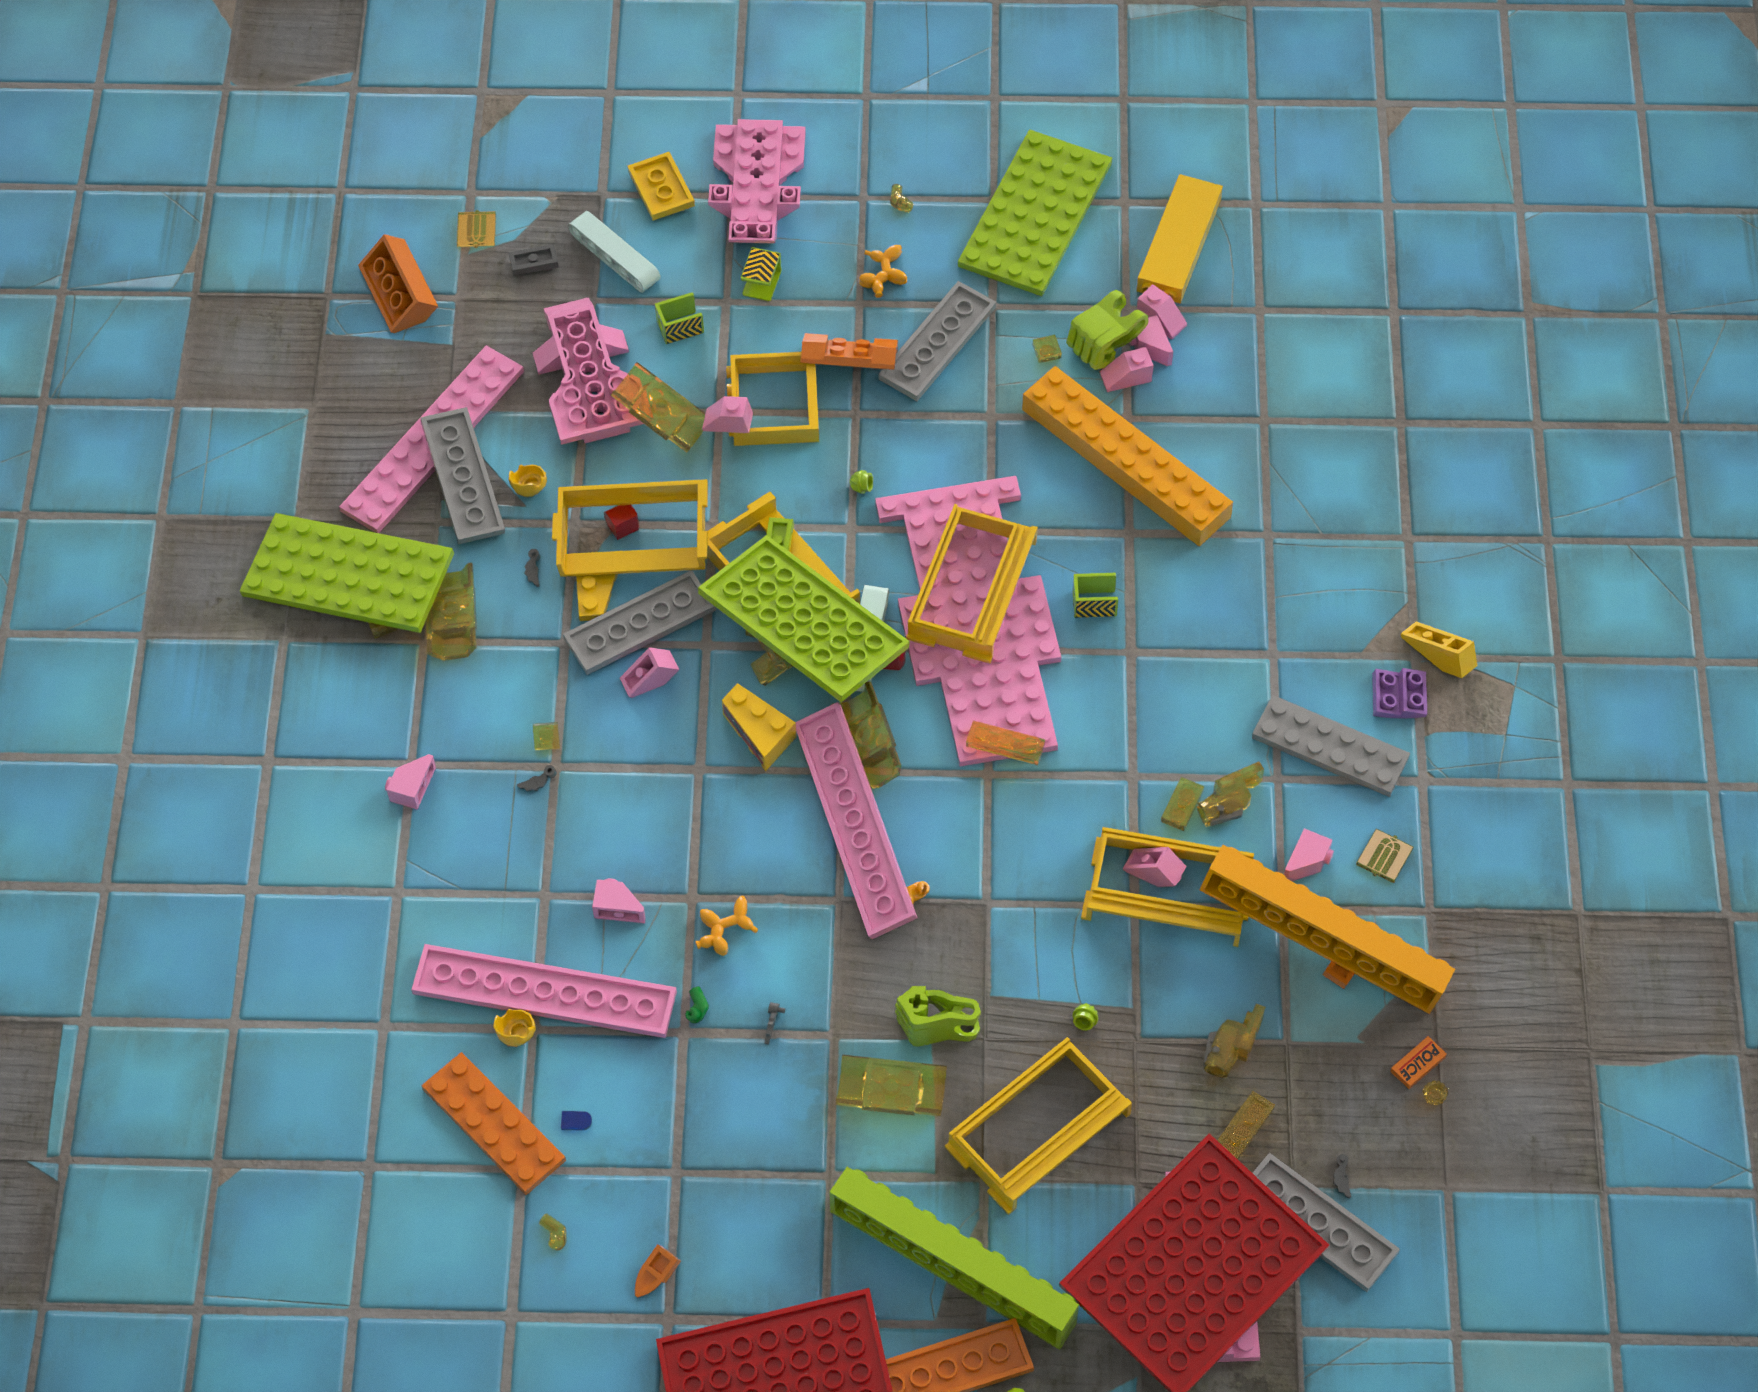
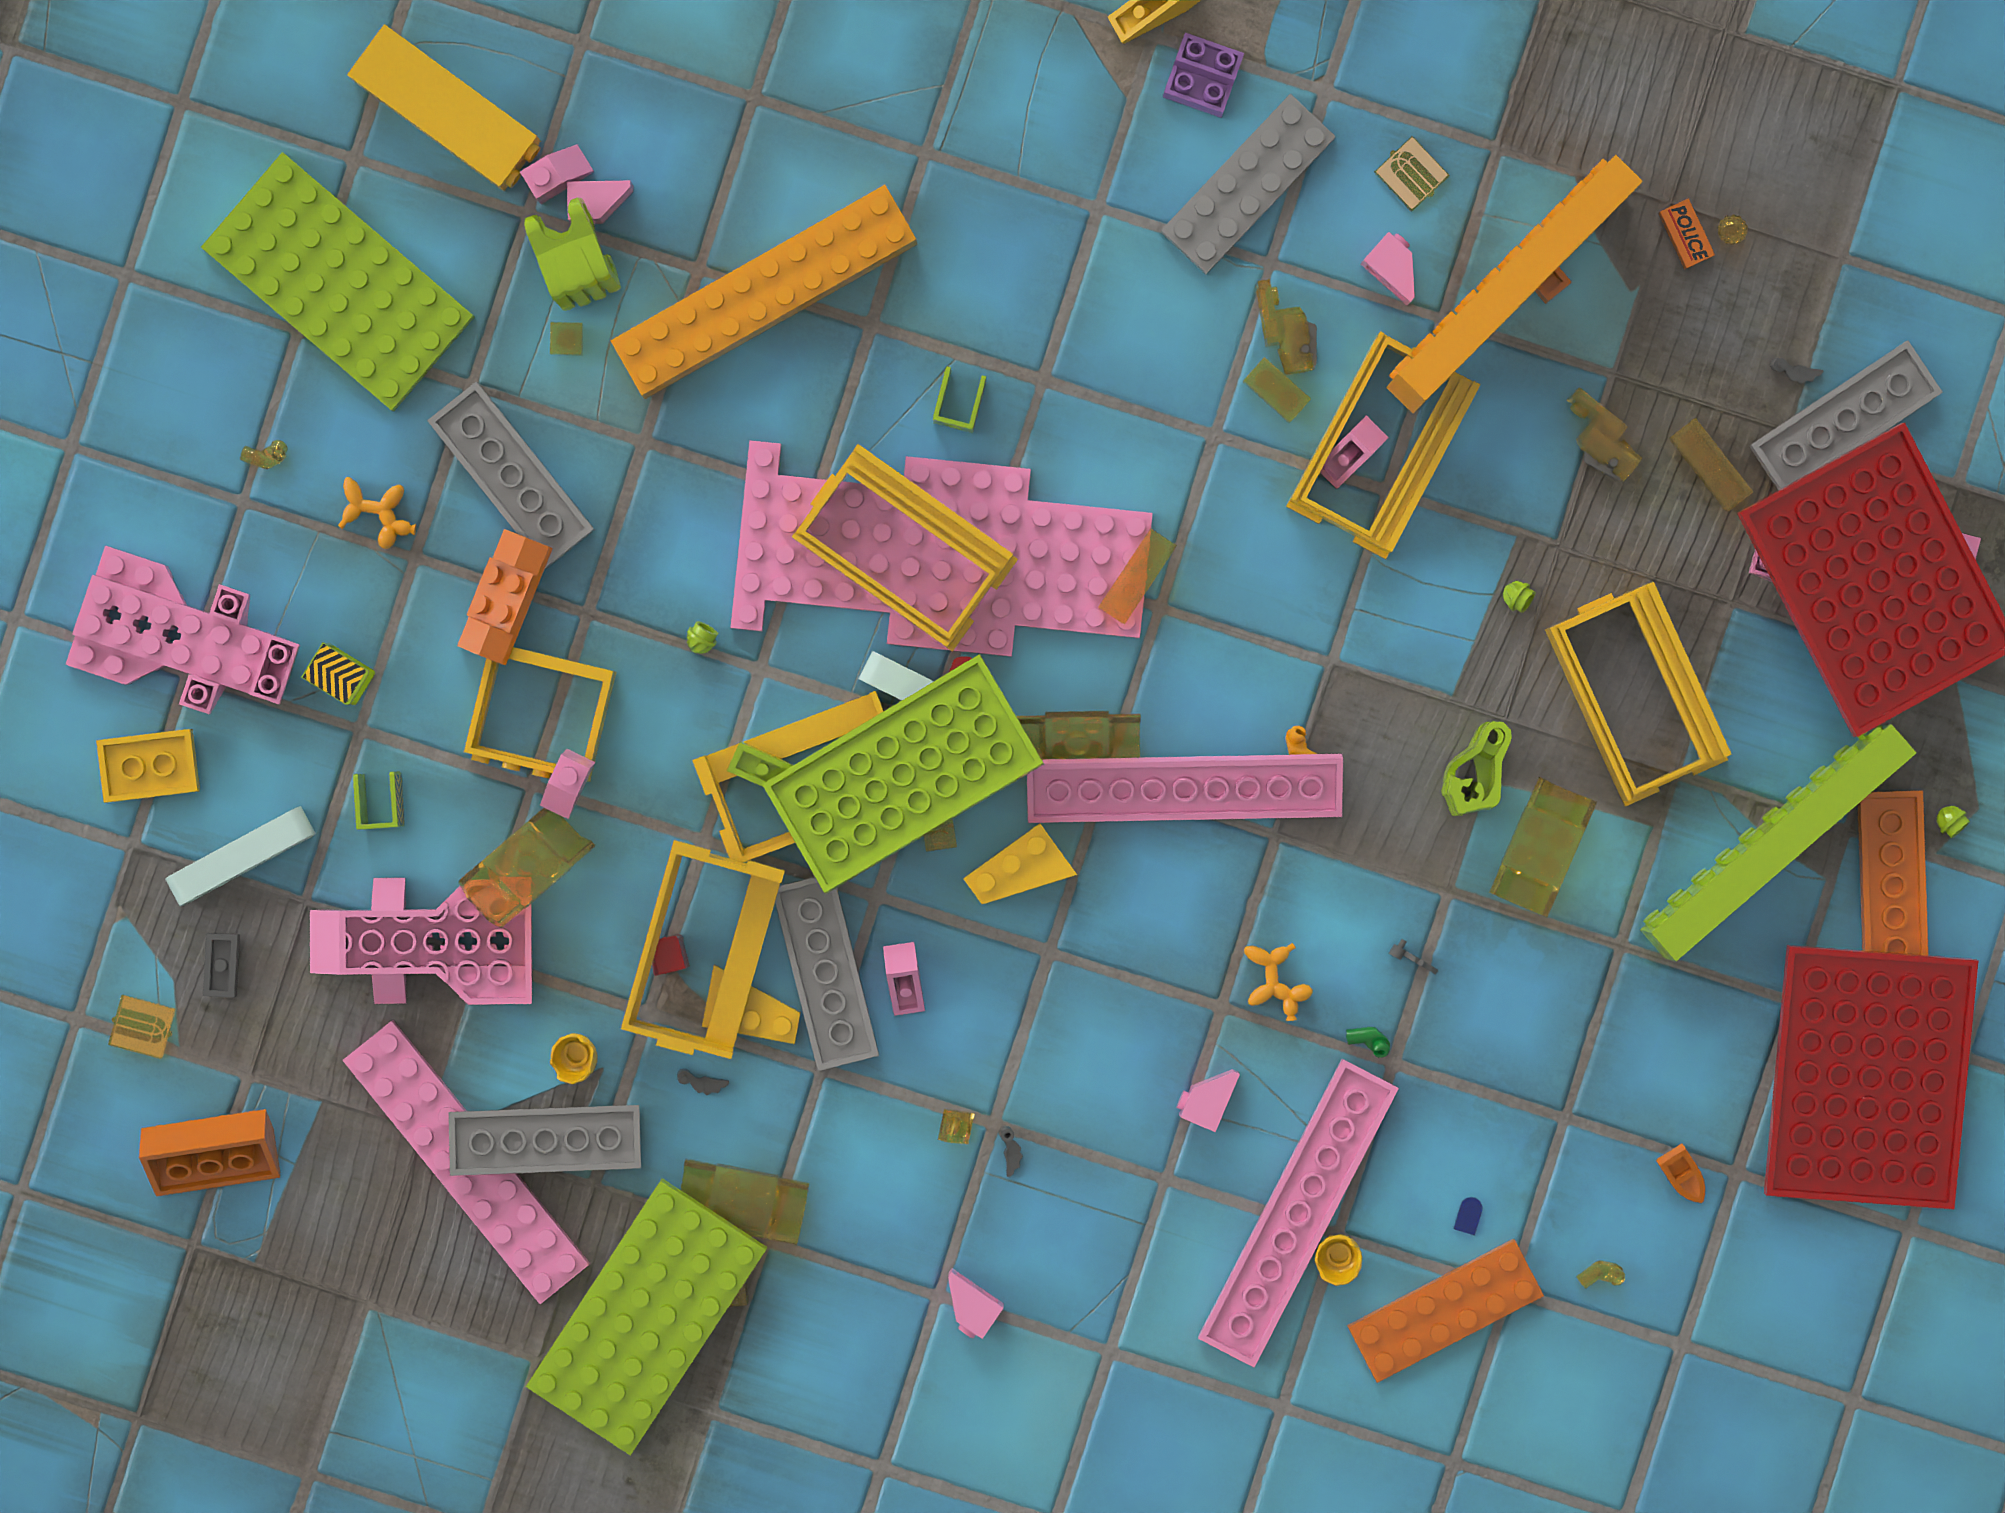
camera: 75 degrees left, 30 degrees up
(1128, 370) = (633, 247): bright pink slope -> none

